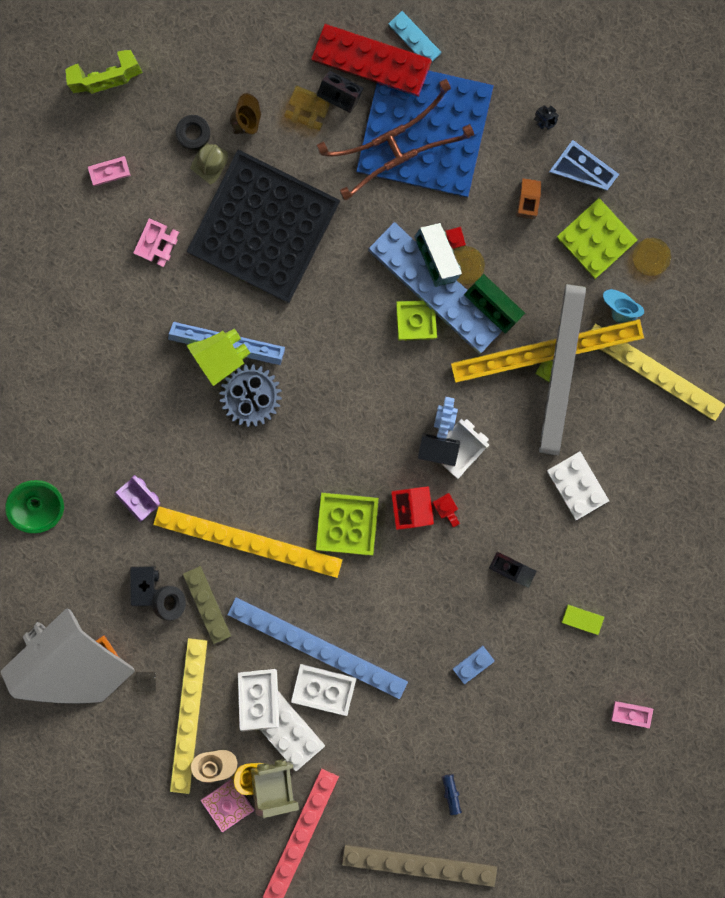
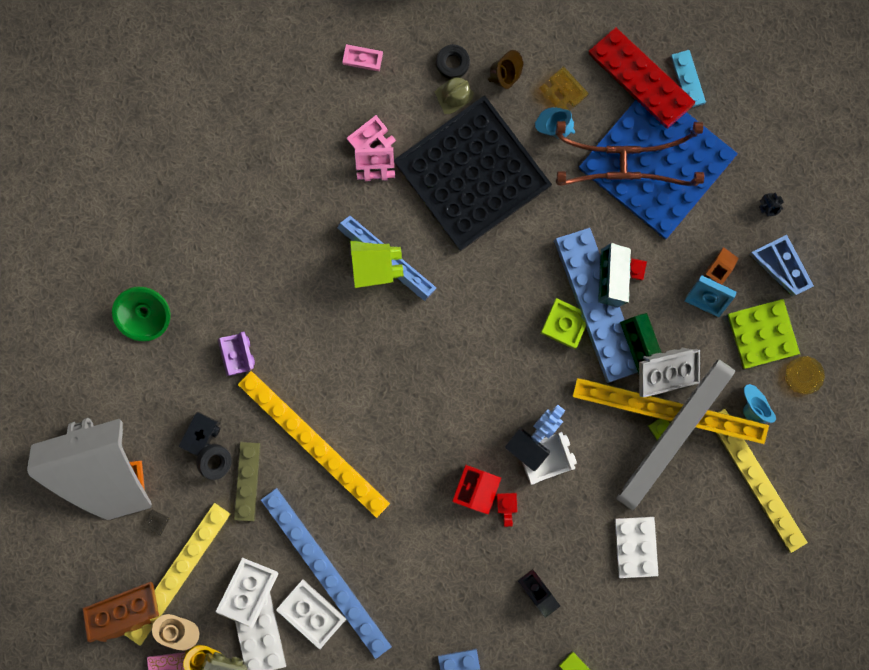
camera: 25 degrees right, 5 degrees down
(158, 774) = (121, 613): none -> dark orange piece
(170, 259) = (374, 159): none -> bright pink plate
(266, 388) = (401, 315): sand blue gear -> none
(310, 137) = (548, 120): none -> dark azure piece
(339, 91) = (599, 90): black brick -> none
(347, 524) = (410, 473): lime plate -> none
(471, 264) = (640, 298): clear yellow tile -> none
(529, 316) = (669, 371): none -> light grey piece
(532, 229) = (710, 296): none -> dark azure plate

